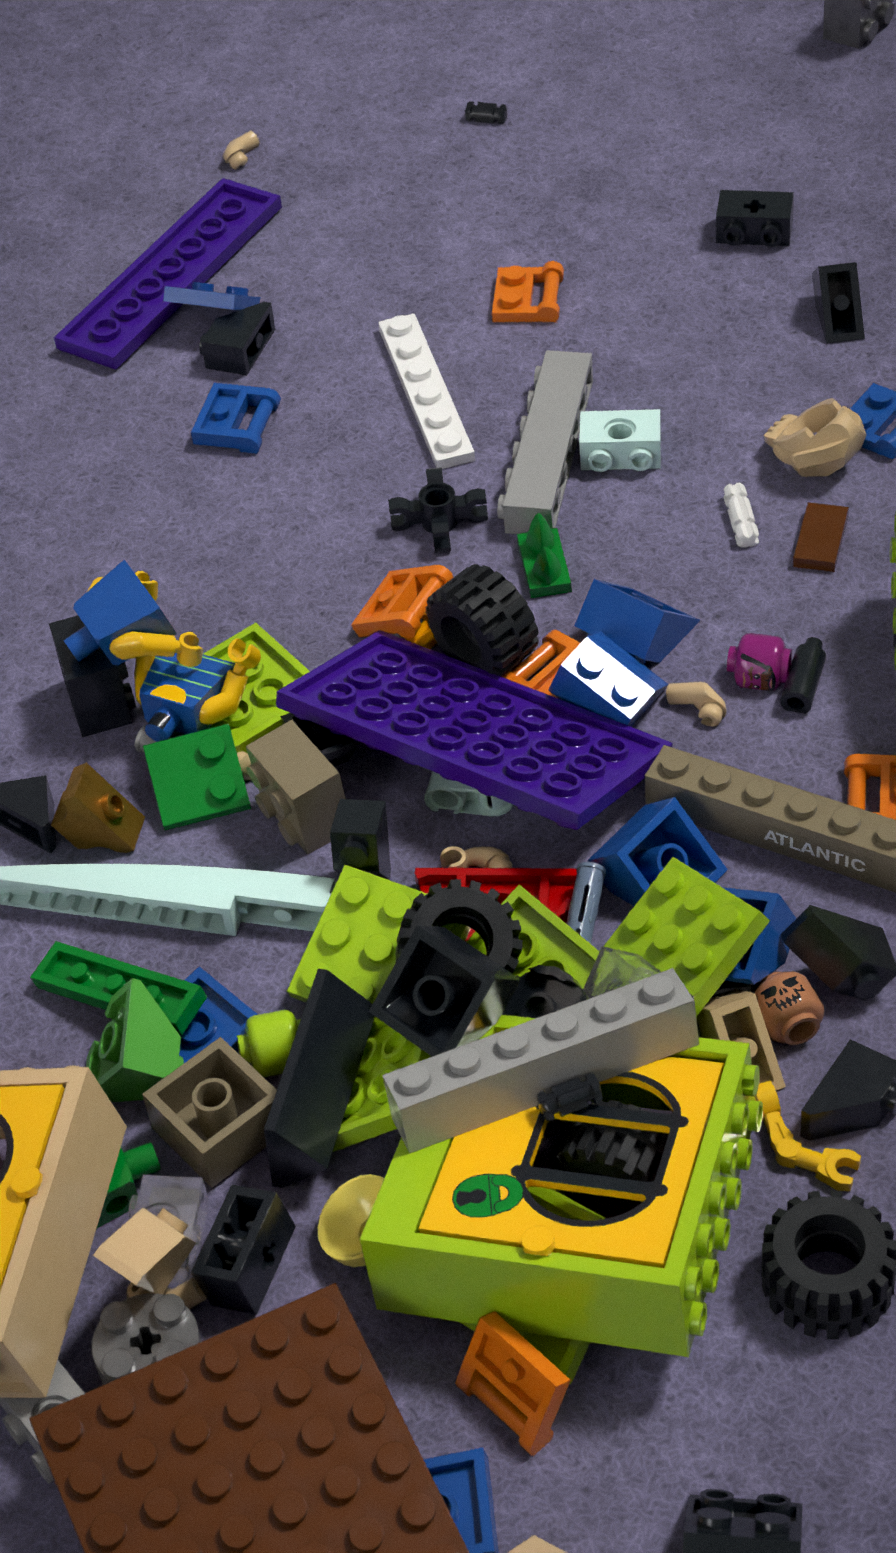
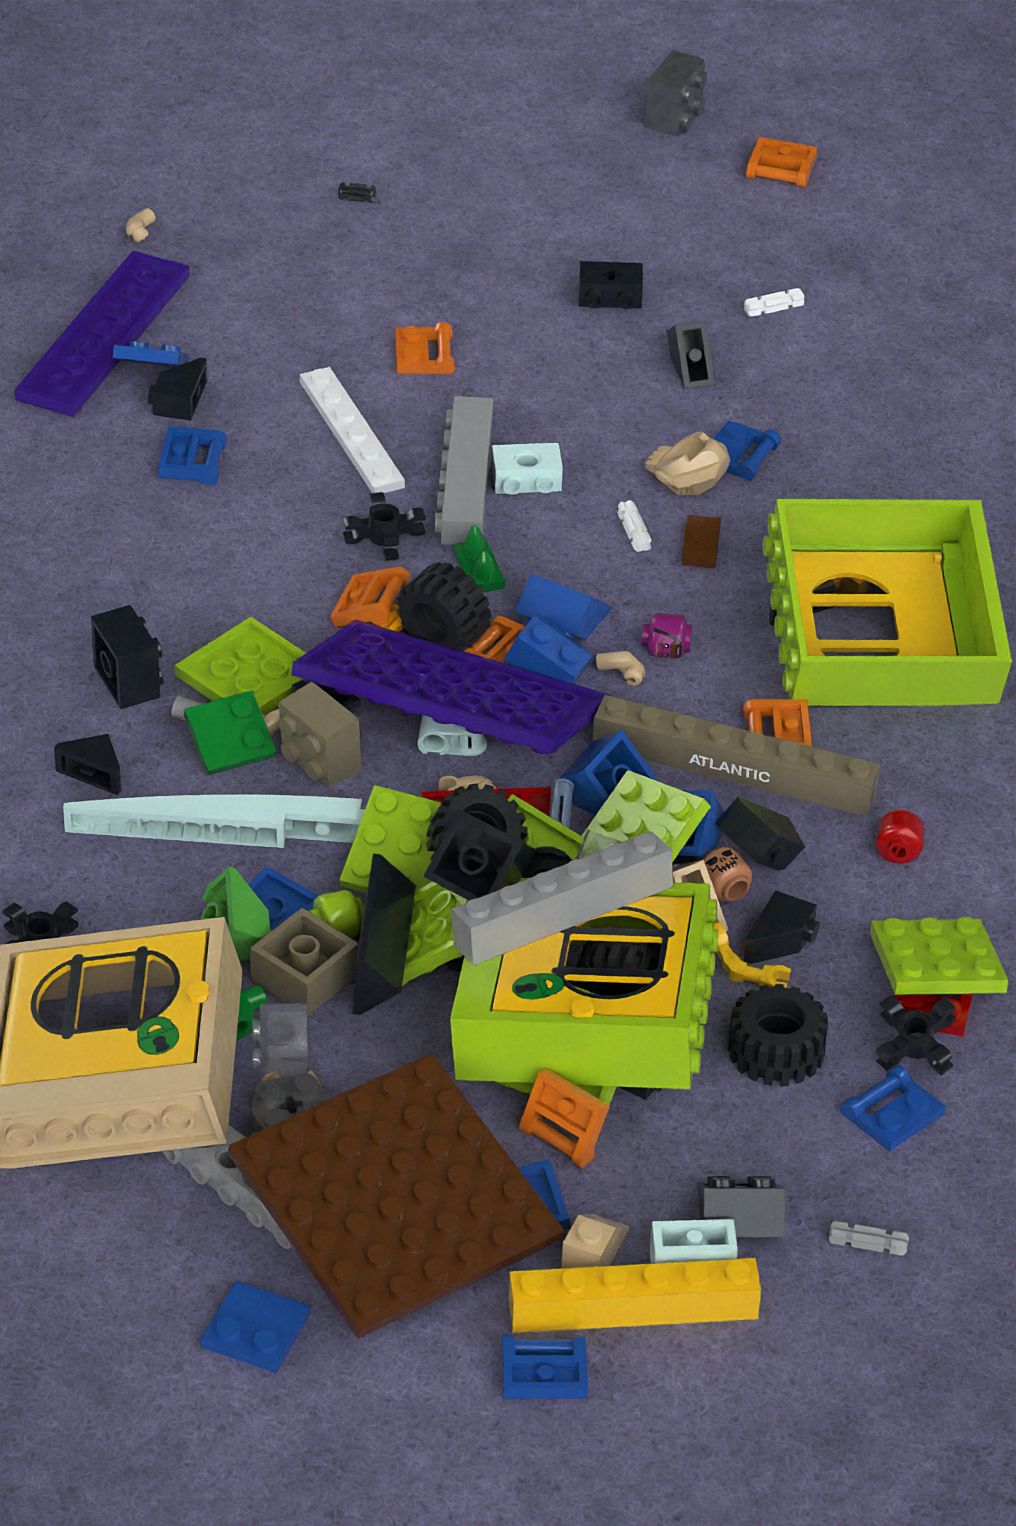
camera: 15 degrees left, 5 degrees down
(96, 813) = (154, 761): pearl gold brick -> none
(97, 978) = (190, 879): green plate -> none
(127, 621) = (164, 610): blue torso -> none
(148, 1249) = (284, 1044): tan slope -> none
(191, 697) = (211, 665): torso -> none
(243, 1249) = (347, 1047): black brick -> none
(345, 1219) = (423, 1022): light yellow piece -> none
(361, 837) = (379, 764): black slope -> none
(569, 1097) = (586, 921): black piece -> none
(803, 676) = (703, 646): black cylinder -> none

